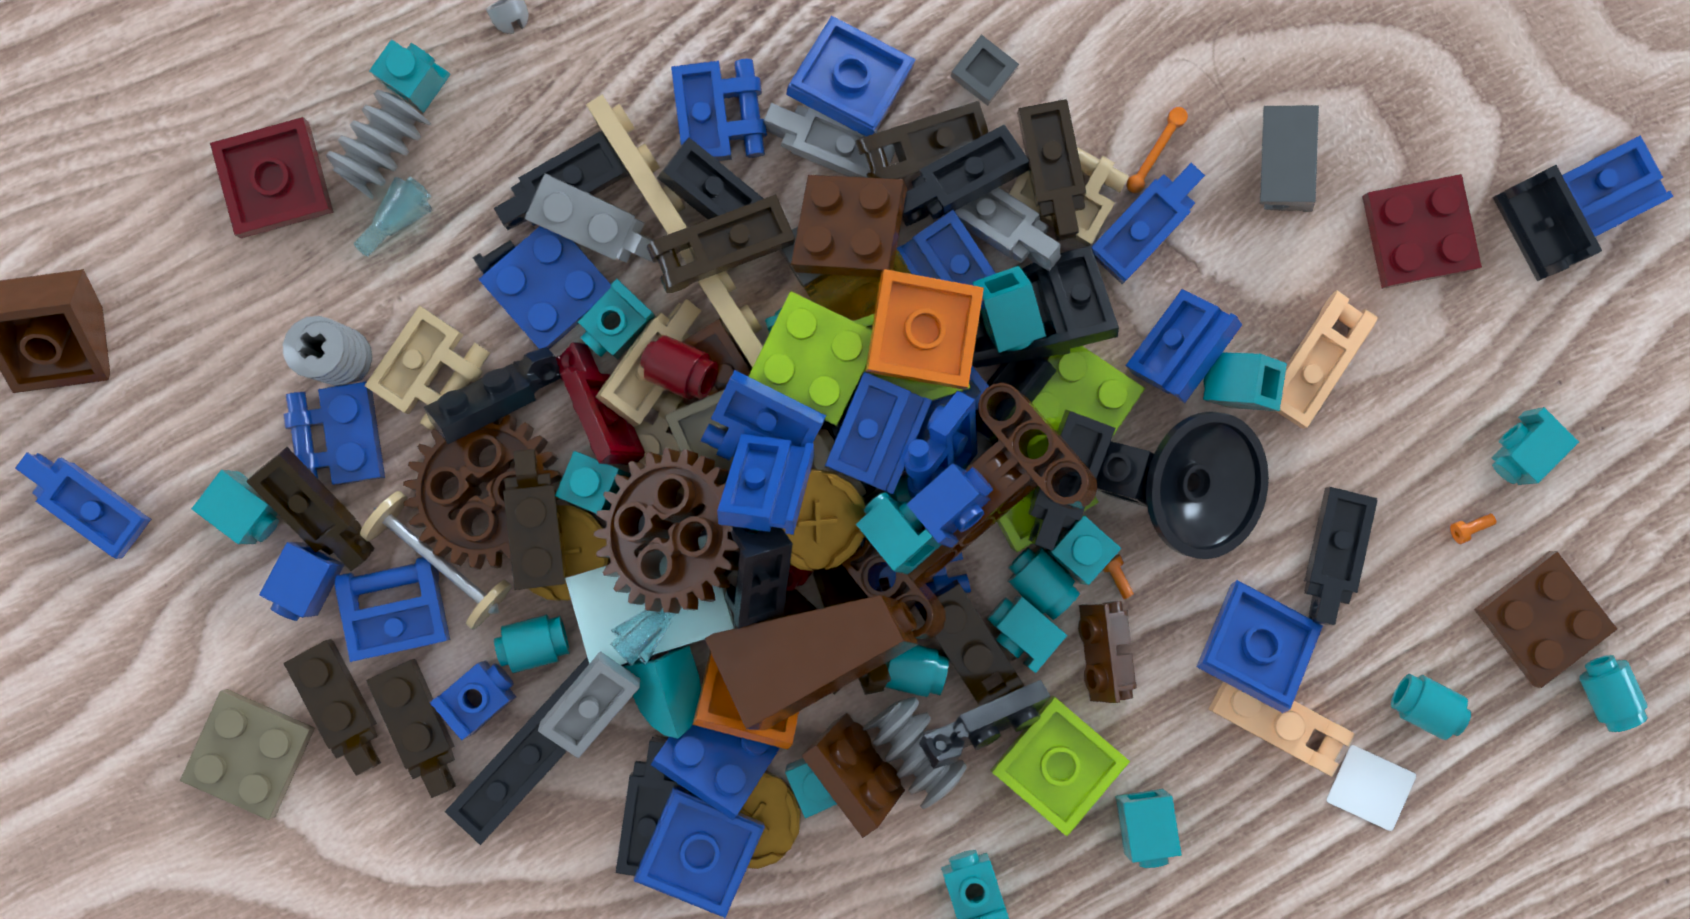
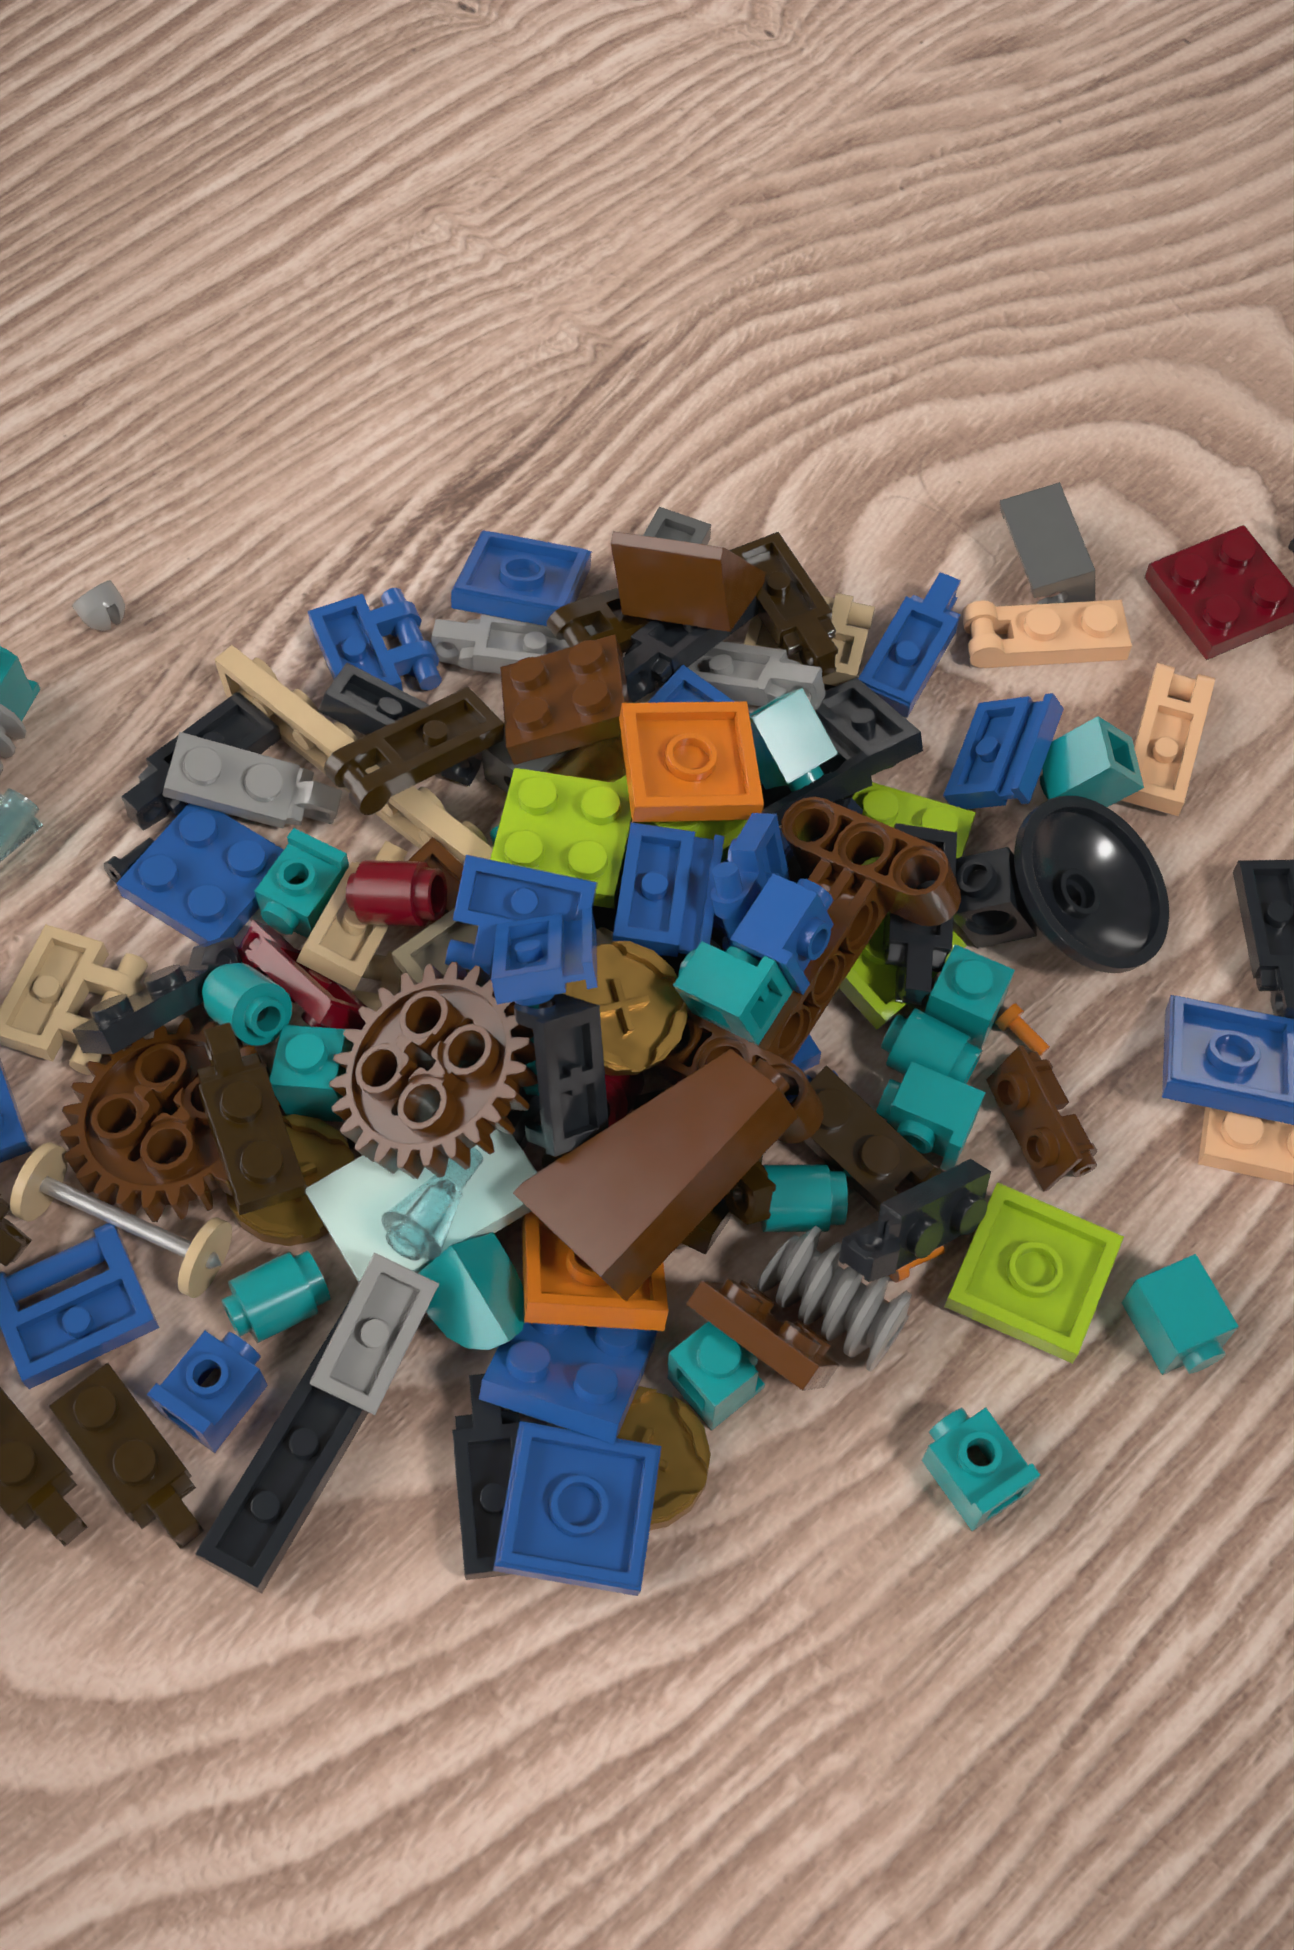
camera: 15 degrees left, 25 degrees down
(551, 423) = (248, 1001): none -> teal brick
(974, 140) = (683, 581): none -> reddish brown slope
(1176, 118) = (906, 549): orange hinge -> none
(1261, 234) = (1046, 633): none -> light nougat plate

